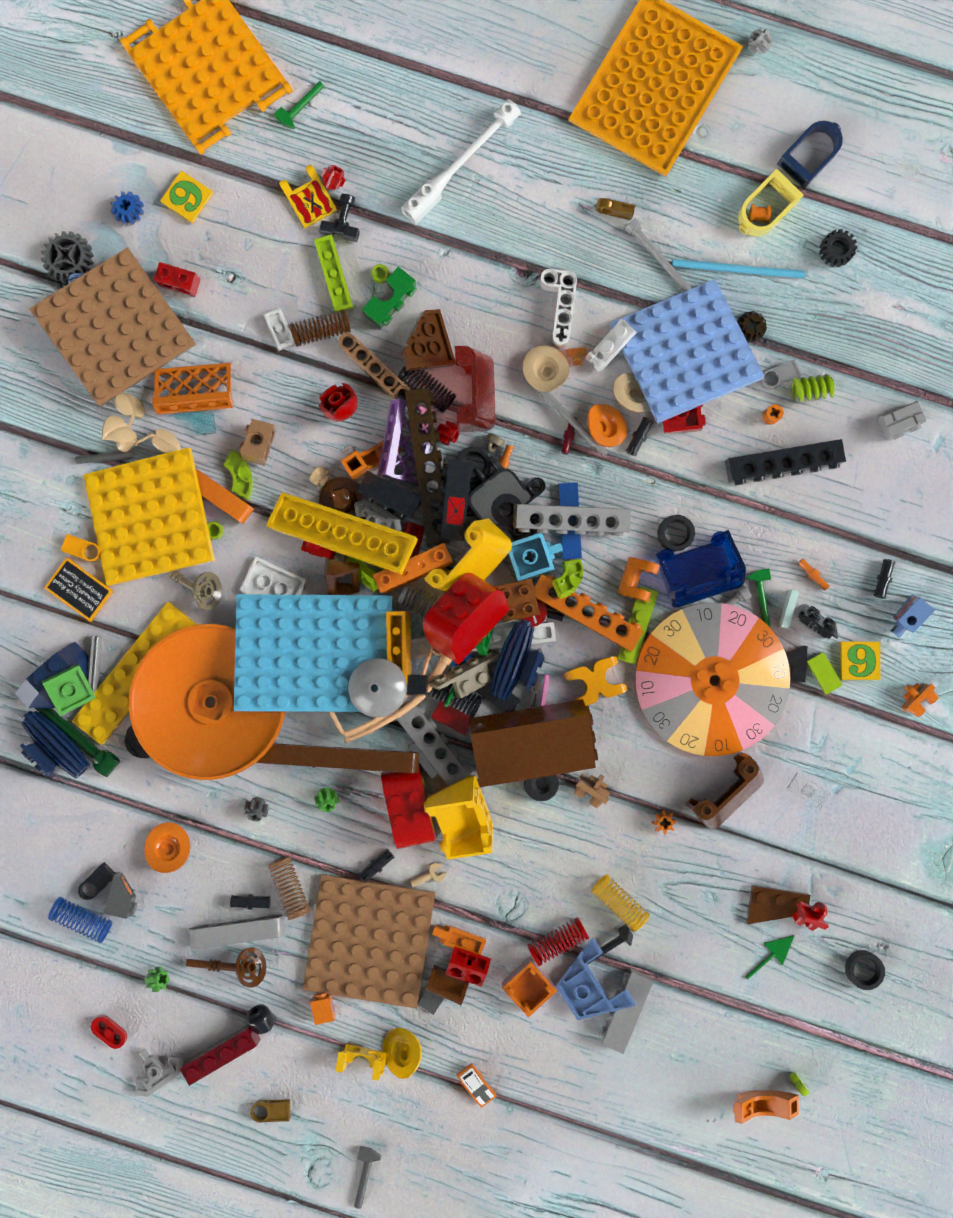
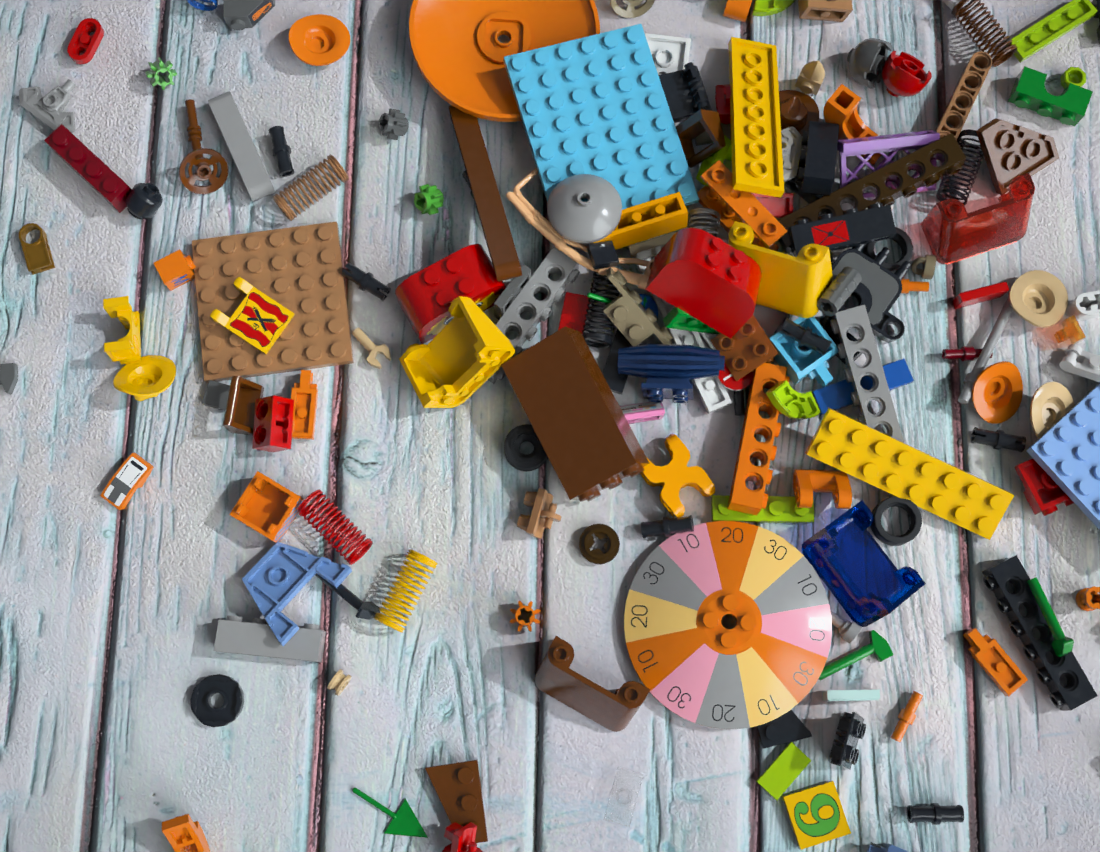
camera: 70 degrees right, 10 degrees down
(300, 577) = (684, 91): none -> black hinge
(318, 426) = (867, 61): none -> dark grey cylinder
(382, 956) = (257, 318): none -> flag
(421, 640) = (650, 247): none -> dark tan tile
(448, 433) = (916, 208): red gear -> none
(500, 519) = (839, 291): none -> dark grey axle
(526, 555) = (805, 336): none -> black pin
(528, 416) = (980, 295): none -> red tile
(630, 699) = (667, 526): none -> black pin
(635, 756) = (601, 532): none -> dark brown gear
(647, 513) = (909, 473): none -> yellow plate
(653, 1047) = (232, 705): none -> black tile
(670, 968) = (339, 682): none -> tan bush
(795, 499) = (995, 662): none -> orange hinge
(798, 452) = (1062, 645): none -> green piece

